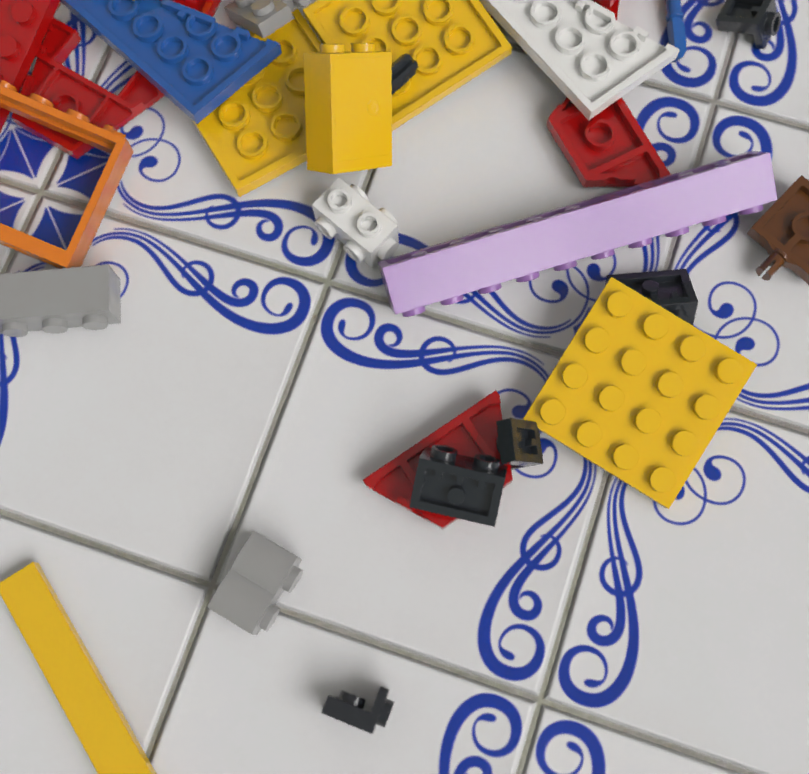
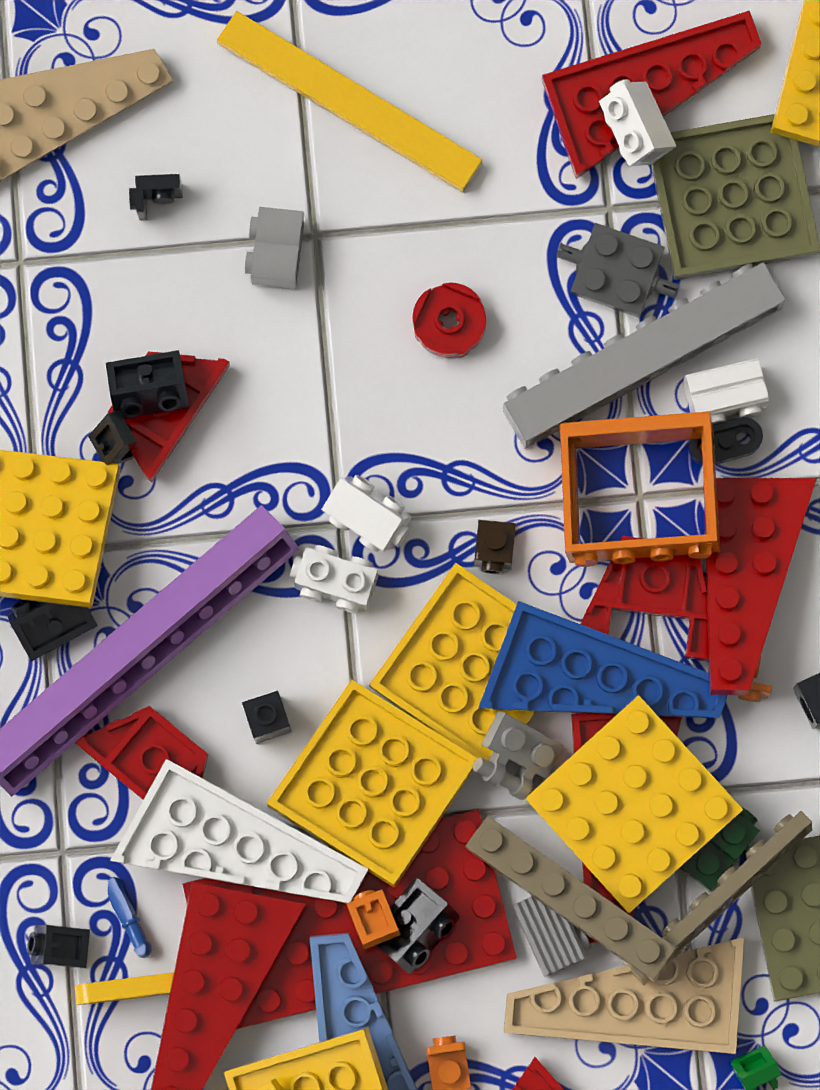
camera: 155 degrees right, 5 degrees up
(143, 435) = (440, 301): none -> red plate
(194, 196) = (494, 546): none -> dark brown bracket
(296, 266) = (368, 514): none -> white brick
(351, 106) = (376, 662): yellow piece -> none
(478, 126) = (266, 717): none -> black brick

